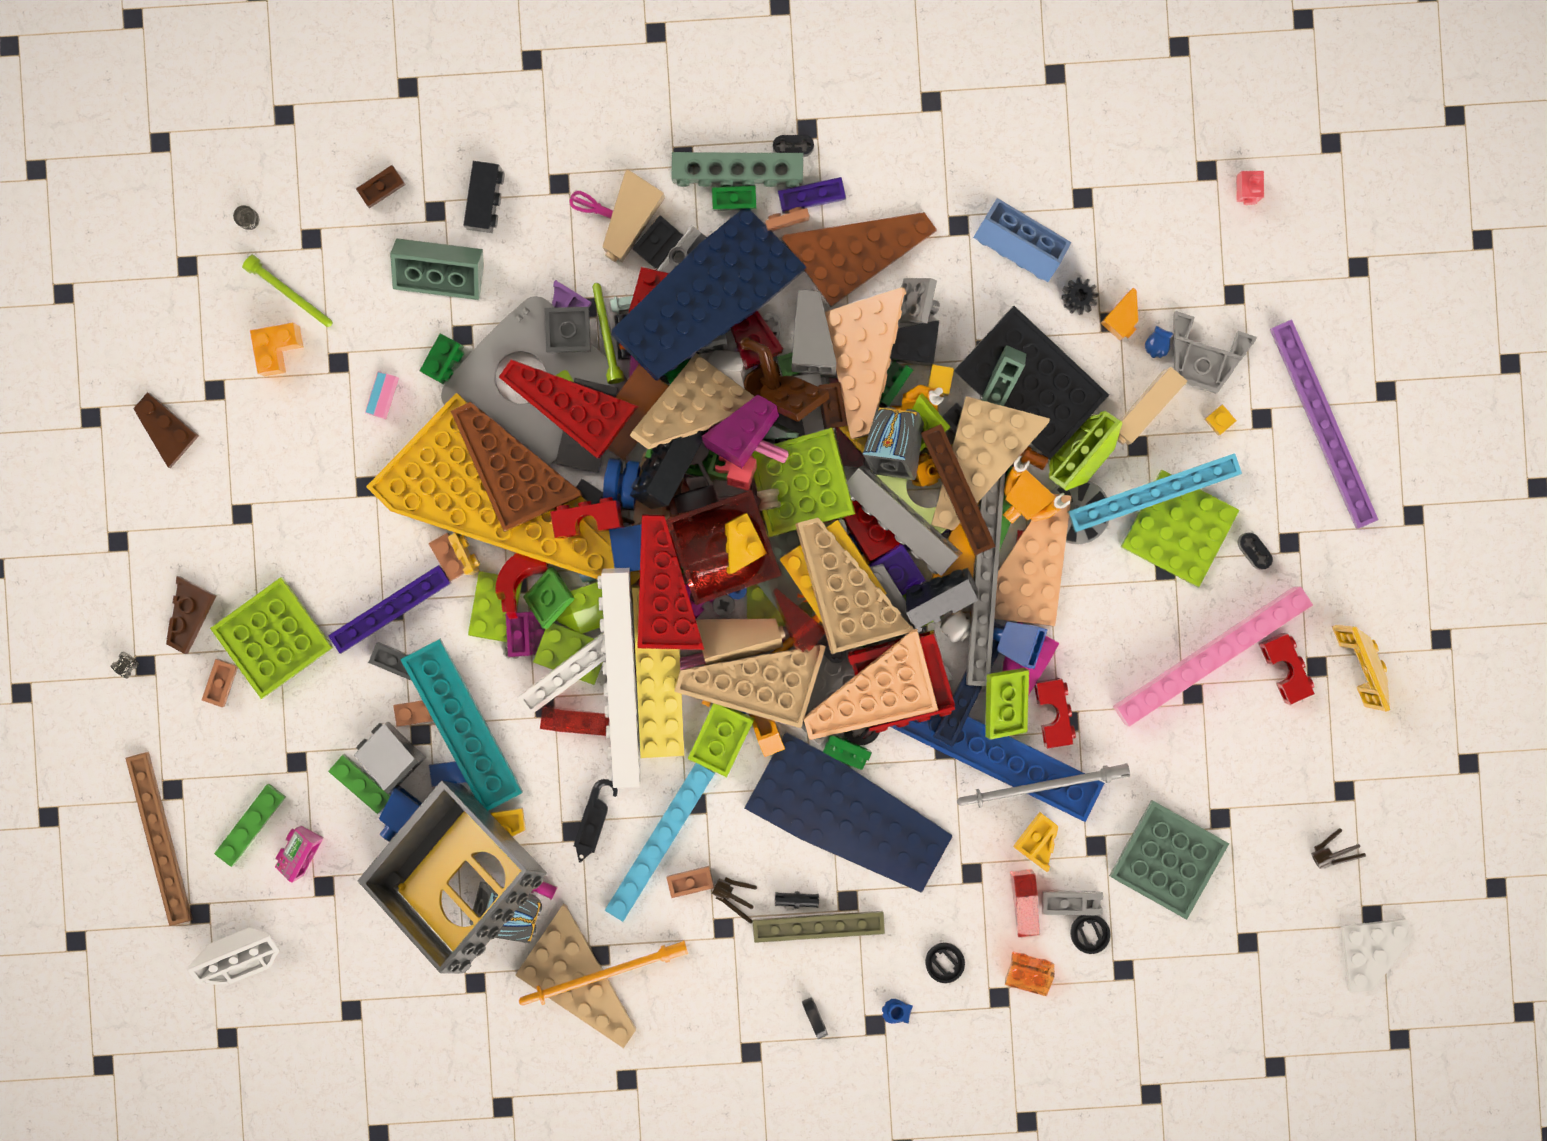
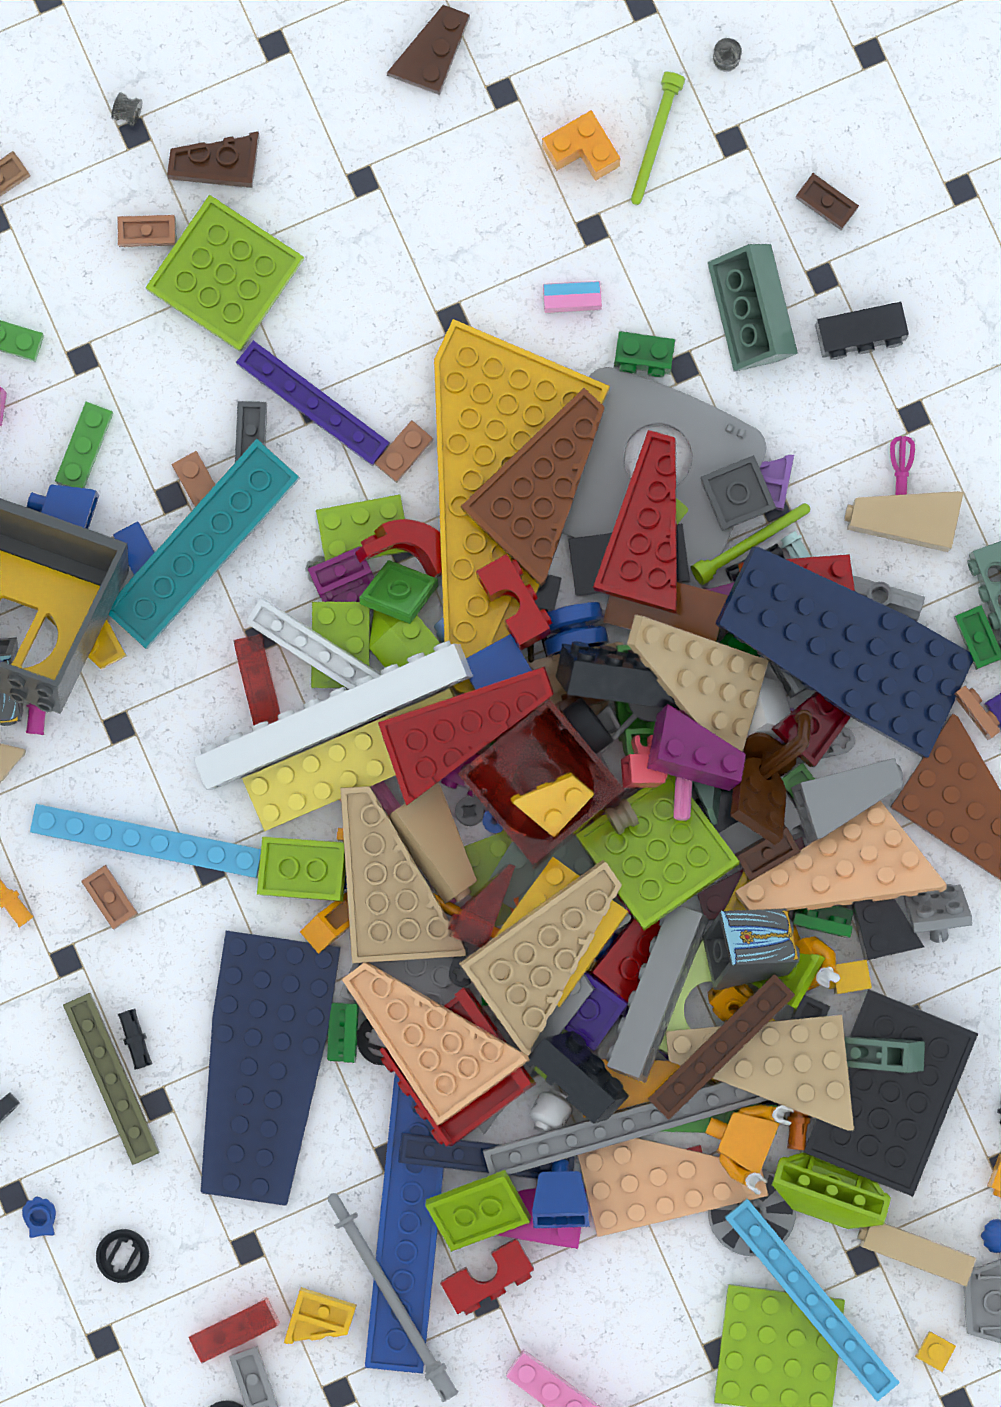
camera: 75 degrees right, 5 degrees down
(388, 756) = (131, 468): slope -> none
(460, 548) = (423, 459): yellow wing -> none
(592, 820) = (142, 748): black plate -> none
(657, 242) = (888, 563): black plate -> none
(724, 891) = (113, 943): dark brown plant -> none
(1030, 974) = (147, 1369): clear orange bracket -> none

